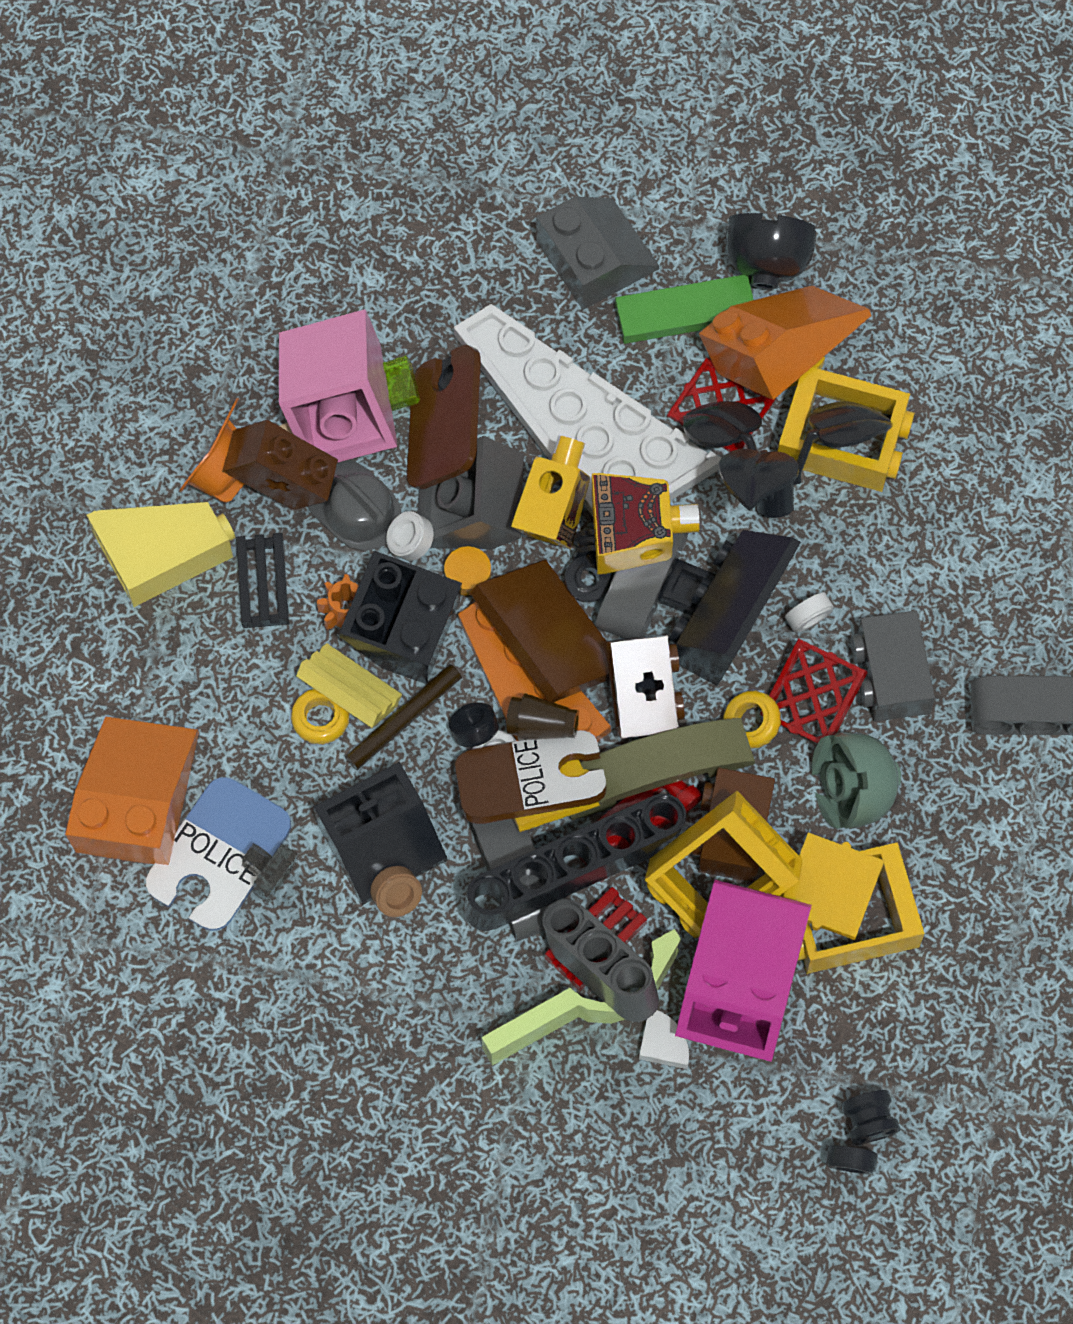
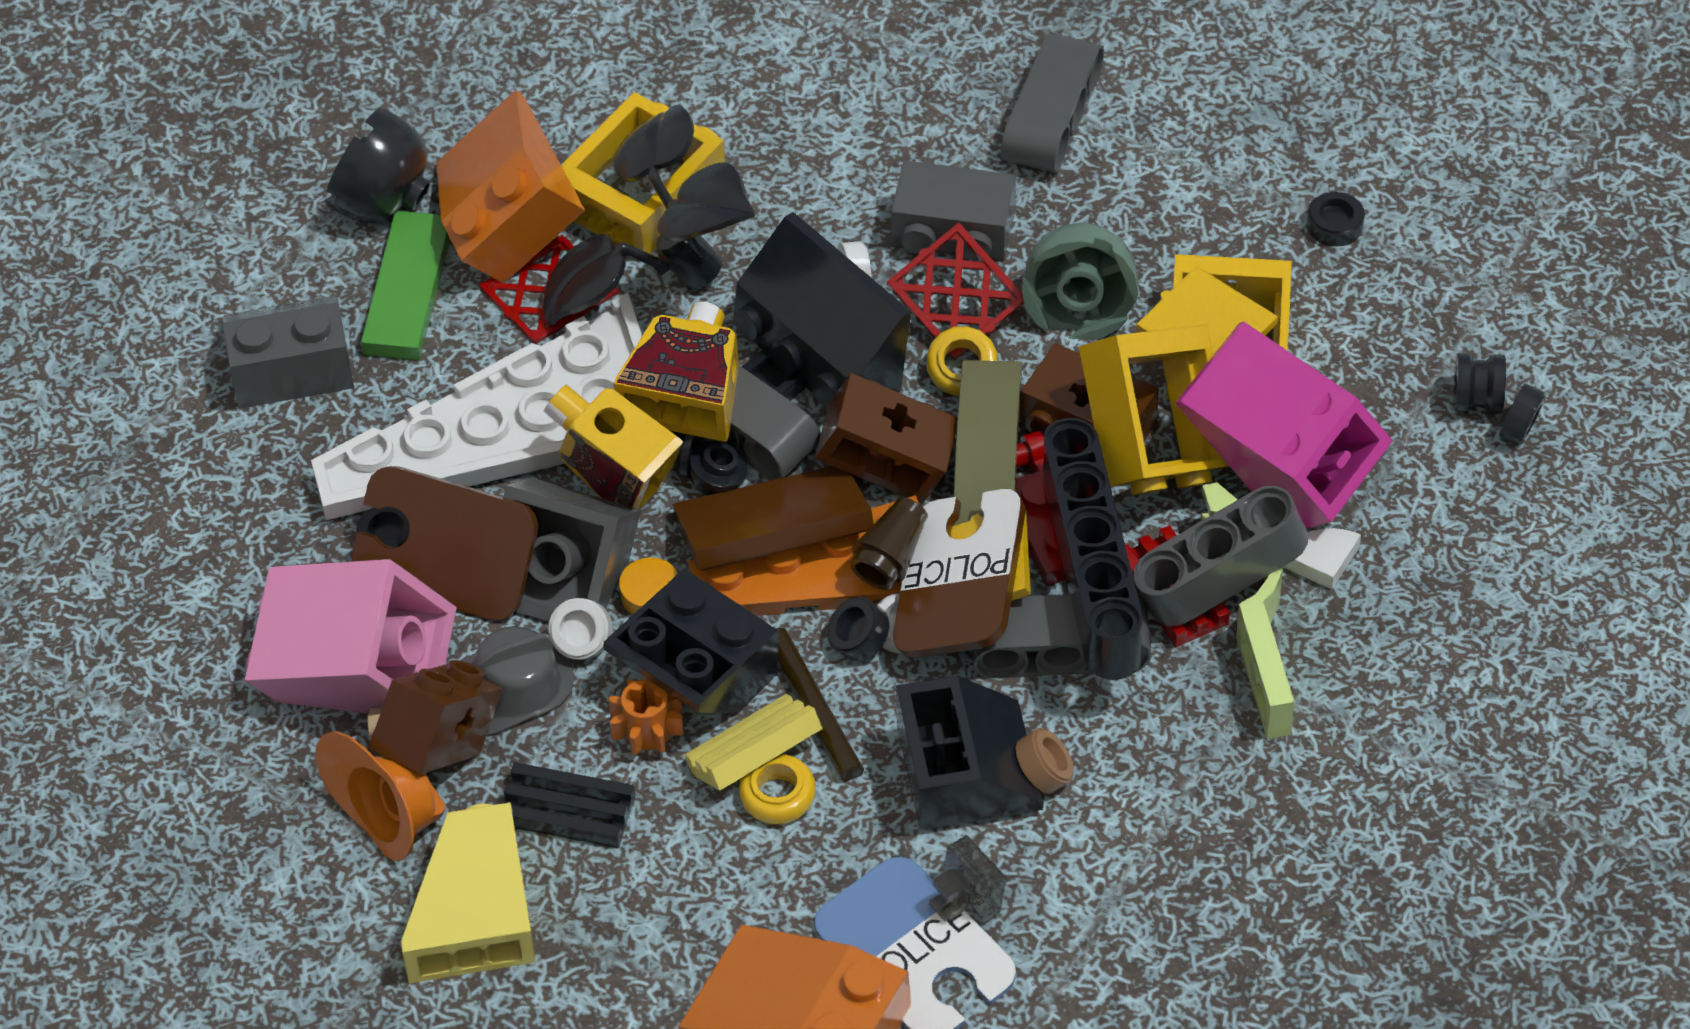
camera: 70 degrees left, 15 degrees down
(1010, 961) = (1335, 219): none -> black tile

